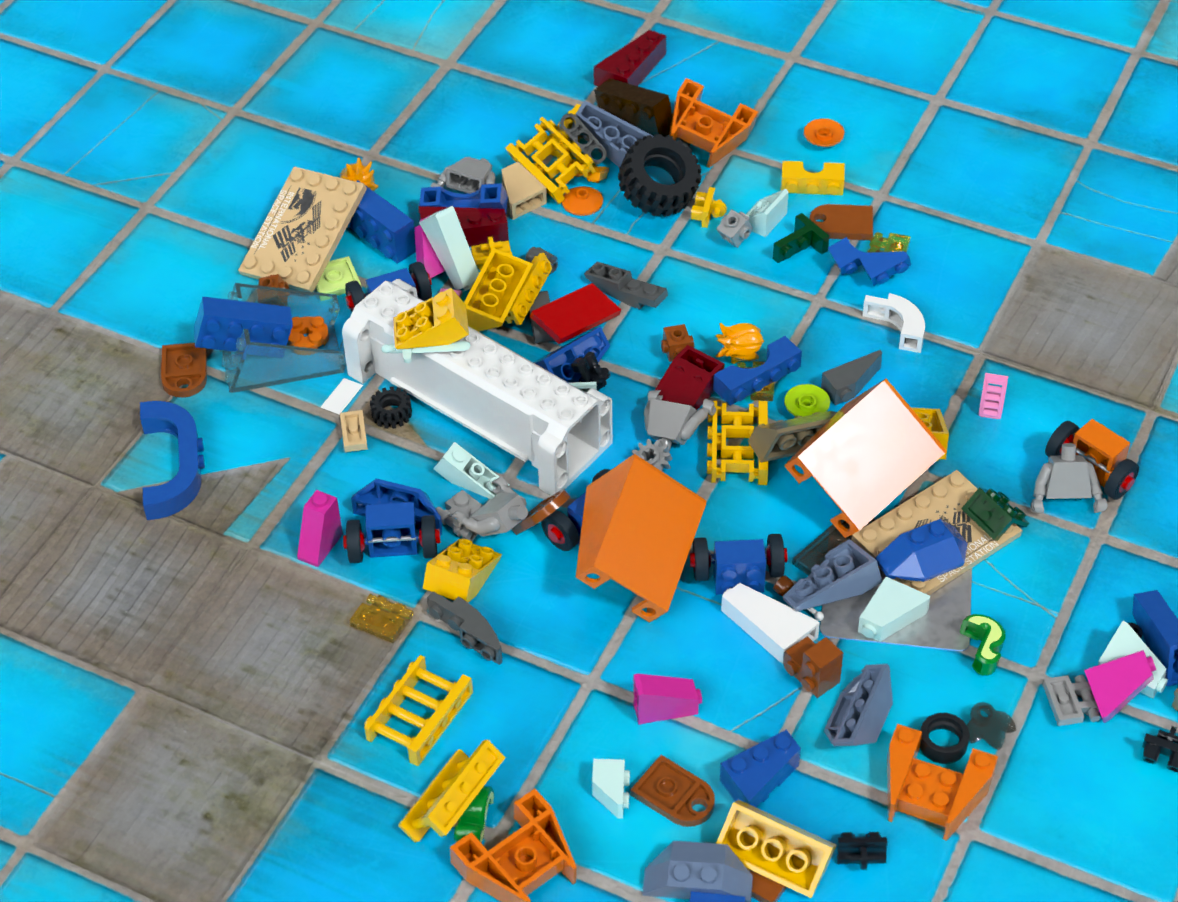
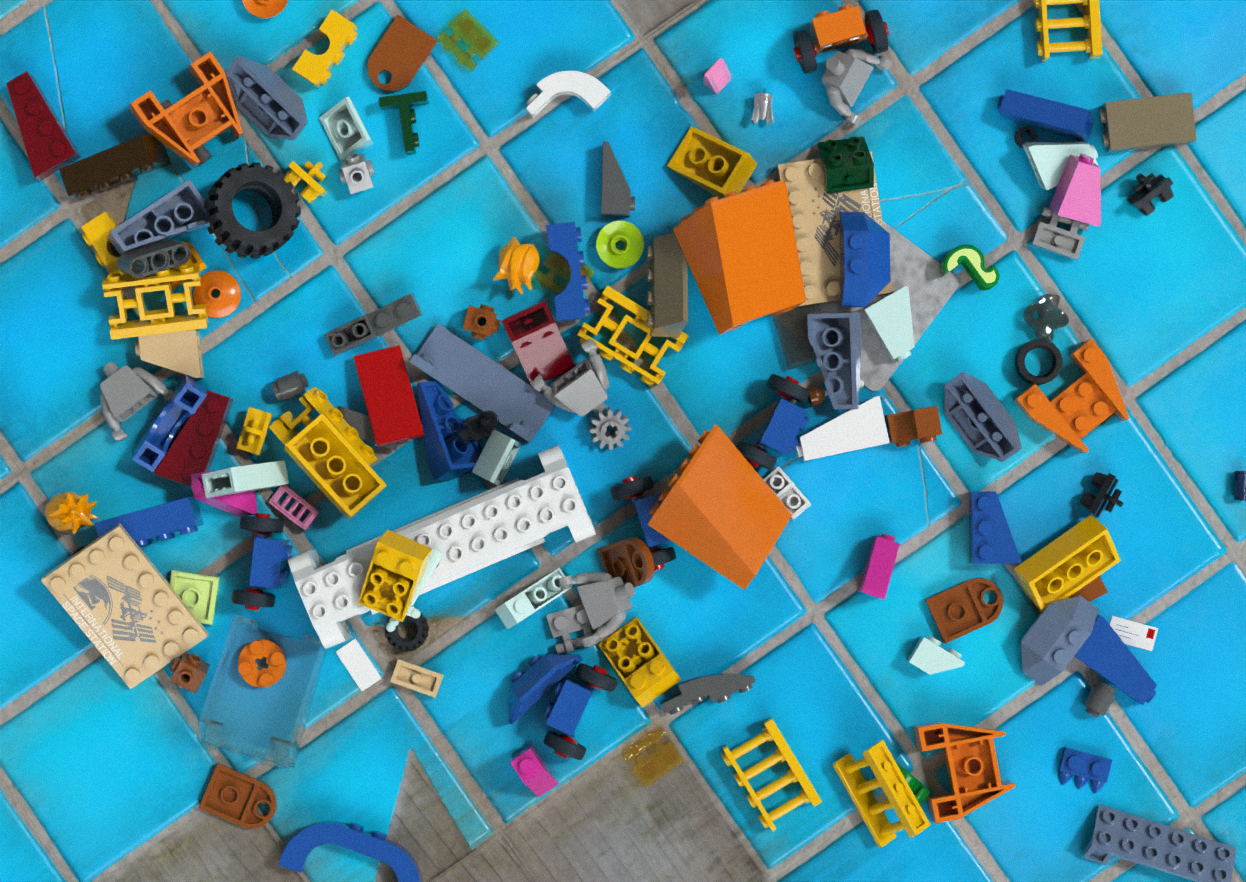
camera: 60 degrees left, 40 degrees up
(223, 321) = (245, 731): blue brick -> none
(629, 367) = (483, 382): none -> sand blue bracket
(684, 607) = (787, 492): none -> white slope
(750, 158) = (266, 99): none -> sand blue wedge
(877, 265) = (489, 71): blue arch -> none
(996, 442) = (762, 108): none -> flat silver piece

